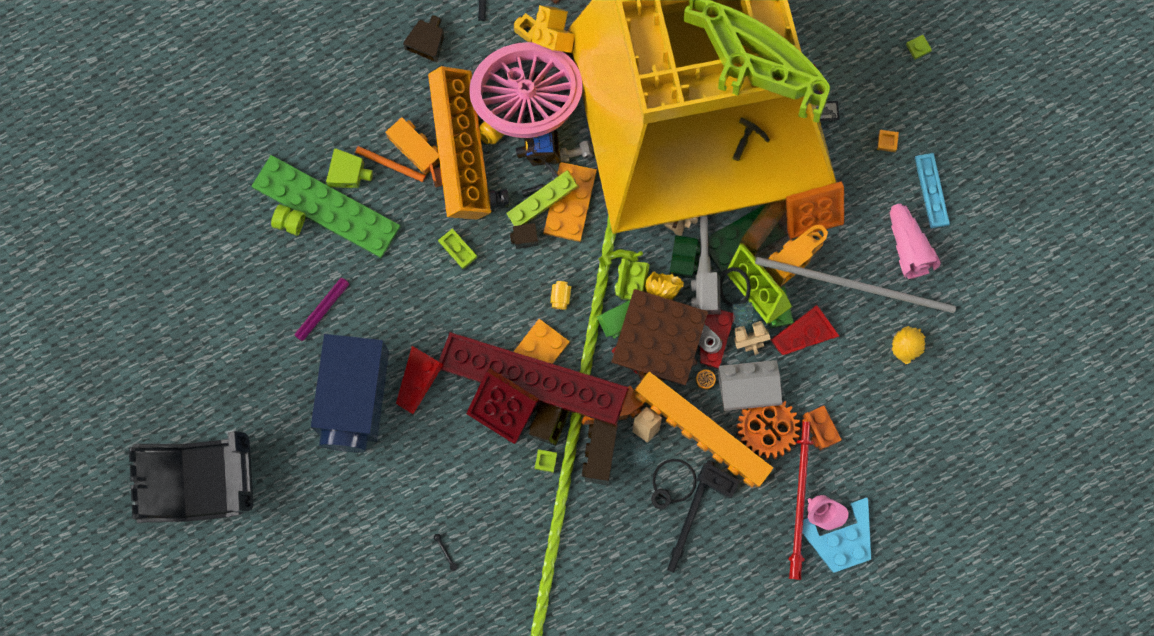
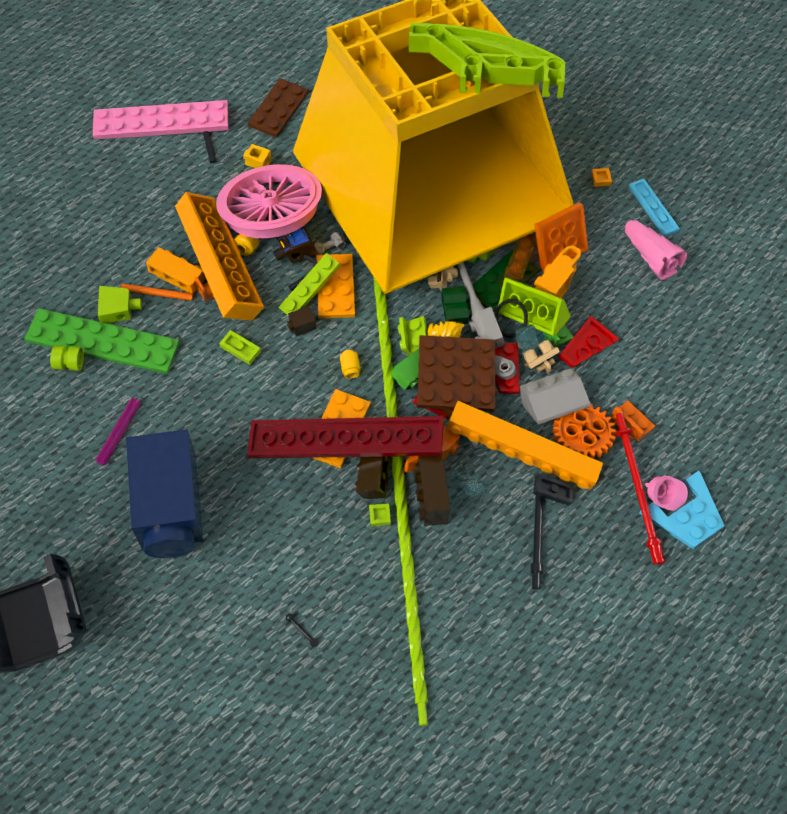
camera: 20 degrees left, 15 degrees down
(417, 379) = (230, 471): red wing -> none
(426, 39) = (165, 184): dark brown torso -> none
(498, 198) = (268, 295): black wheel -> none
(502, 406) = (322, 470): dark red plate -> none
(550, 29) = (279, 149): yellow brick -> none
(629, 255) = (385, 322): lime piece -> none
(647, 424) = (469, 454): tan brick -> none
(656, 504) = (510, 517): black piece -> none
(675, 460) = (505, 521): black piece -> none
(705, 379) = (510, 405): tile -> none
(748, 131) = (481, 184): black piece -> none
(855, 284) = (618, 287): light grey piece -> none
(908, 344) = (683, 330): yellow hair -> none
(918, 47) = (599, 105): lime plate -> none

